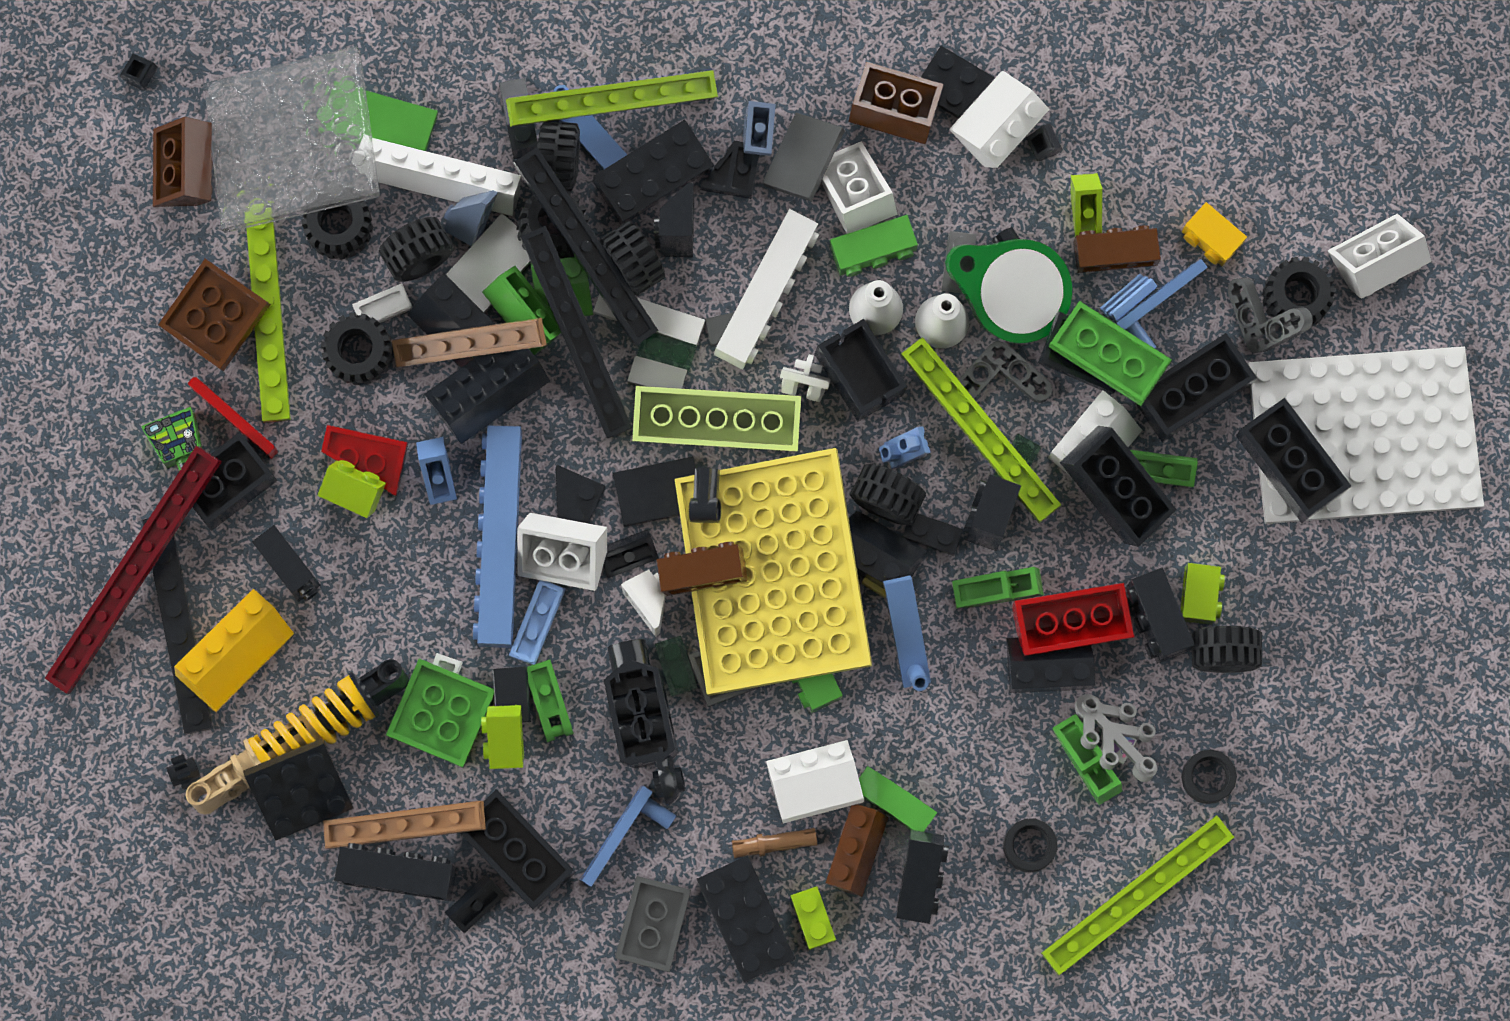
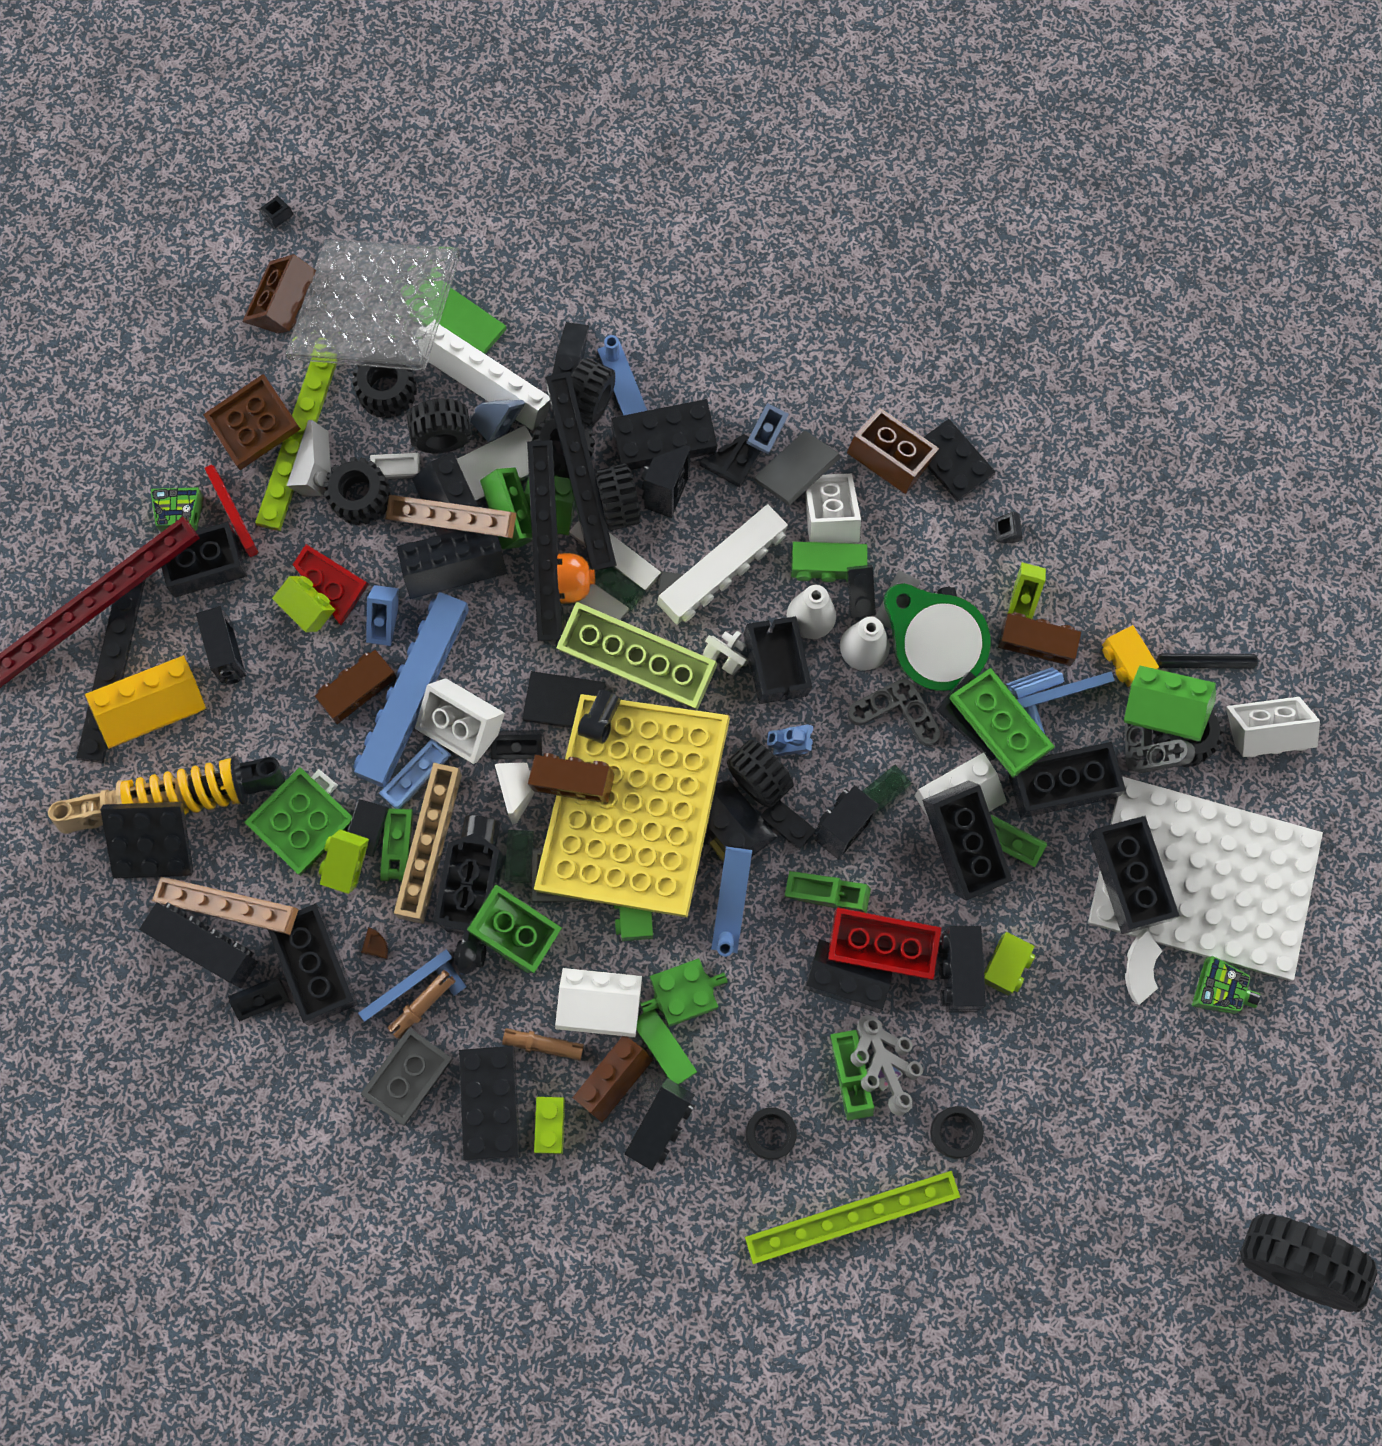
camera: 20 degrees right, 5 degrees down
(183, 771) = (59, 788): black gear -> none
(297, 337) = (311, 462): none -> light grey slope
(439, 554) = (355, 686): none -> reddish brown brick
(567, 808) = (375, 945): none -> reddish brown tile
(576, 495) = (492, 679): black wing -> none
(581, 687) = (428, 843): none -> tan brick
(611, 98) = (651, 361): lime plate -> none
(621, 360) = (574, 577): none -> orange cylinder
(639, 849) = (413, 1012): none -> medium nougat pin
(705, 742) = (514, 929): none -> bright green slope
(893, 740) = (683, 992): none -> bright green plate
(918, 265) = (861, 591): none -> black plate
(980, 429) = (863, 748): lime plate -> none
(999, 120) = (976, 494): white slope -> none
(1227, 649) = (1014, 1021): black tyre -> none
(1270, 273) = (1170, 703): none -> bright green slope
(1293, 210) = (1180, 660): none -> black axle
(1330, 548) = (1140, 966): none -> white tile
(1418, 539) = (1223, 988): none -> torso

